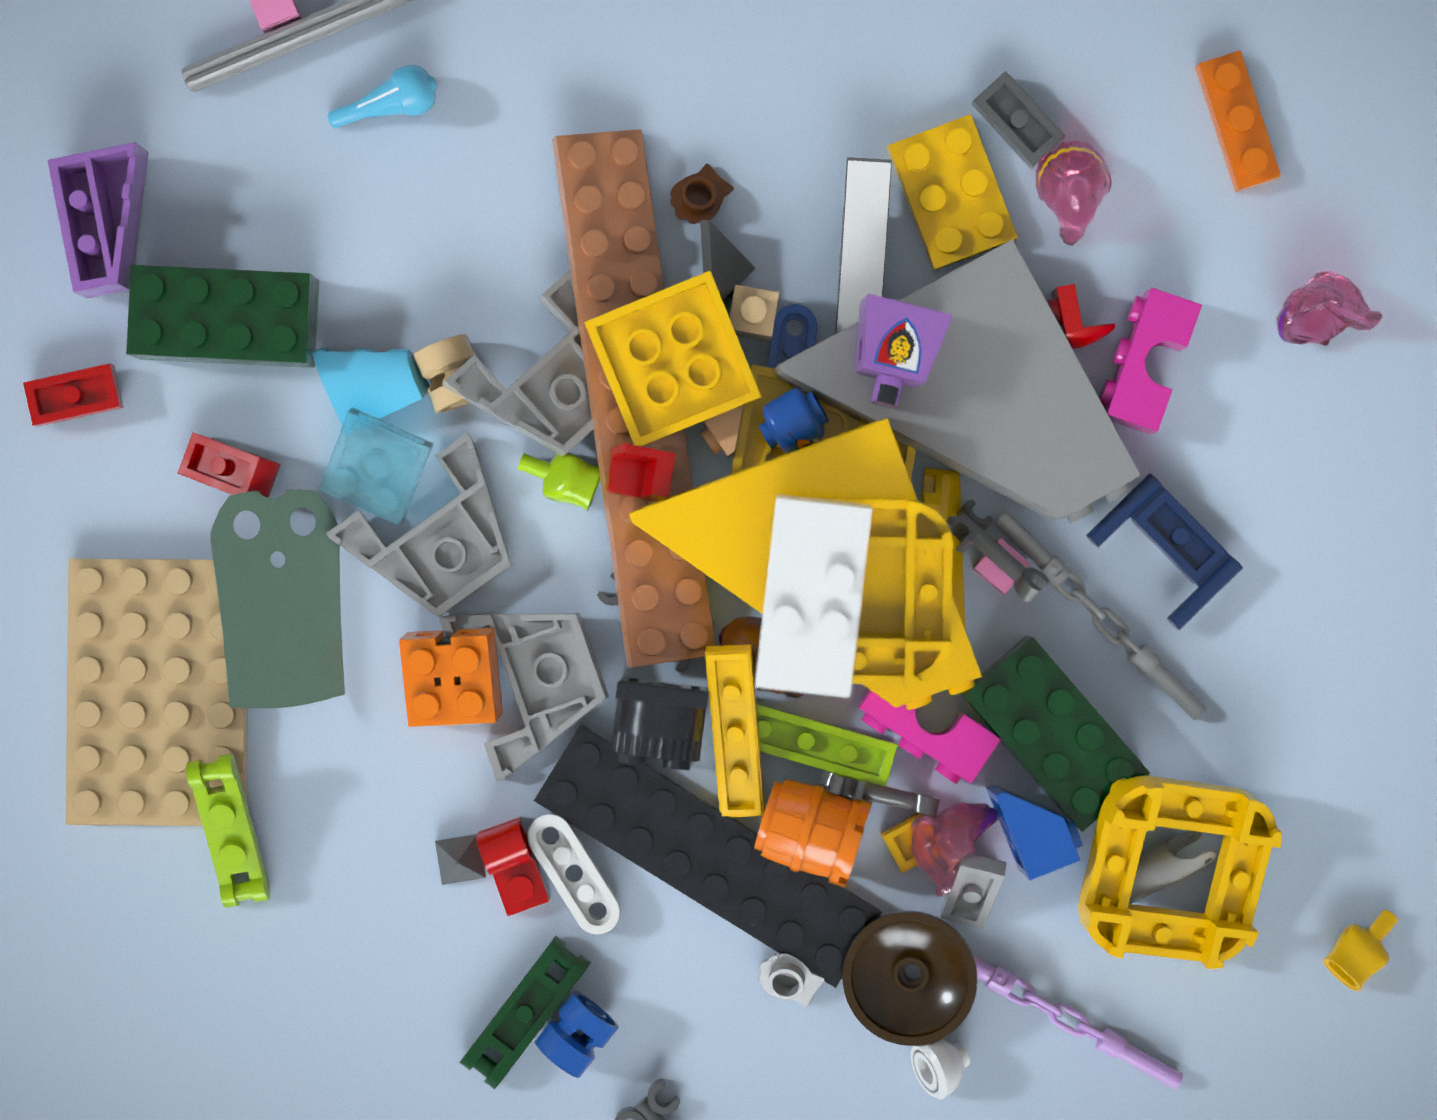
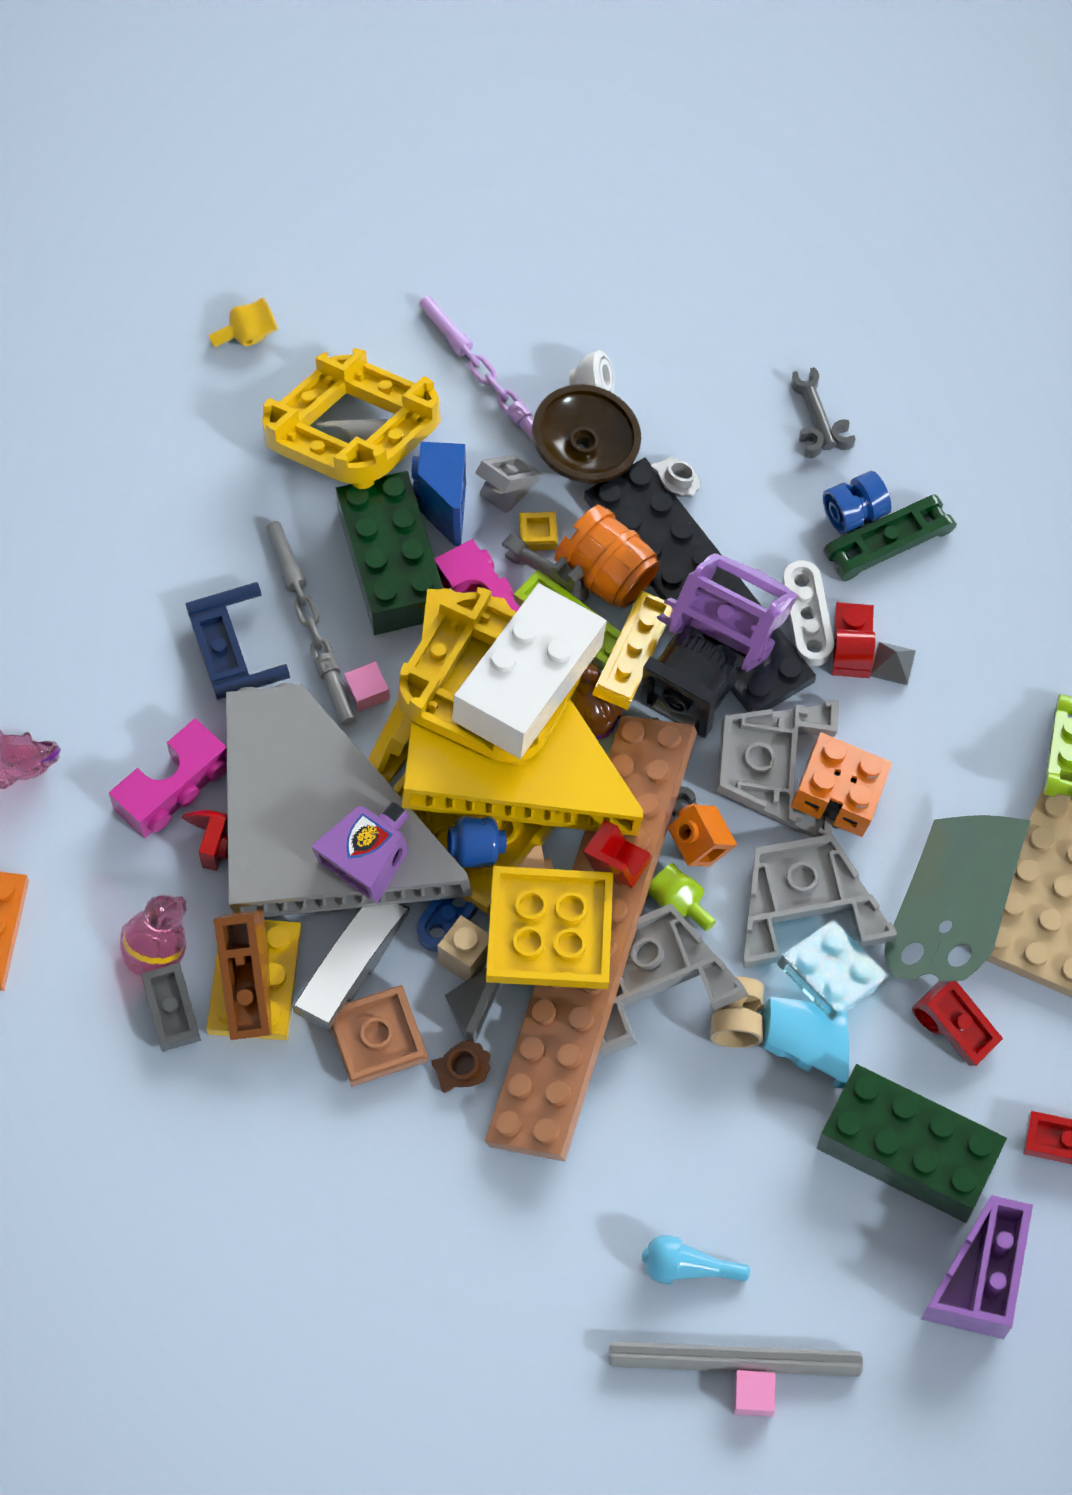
camera: 155 degrees left, 25 degrees down
(571, 551) = (701, 835): none -> orange brick
(645, 799) = (727, 614): none -> medium lavender animal
(797, 186) = (378, 1036): none -> nougat plate
(946, 838) = (507, 509): clear pink hair -> none
(960, 177) = (245, 973): none -> dark orange slope
(971, 530) = (379, 709): dark grey bar -> none

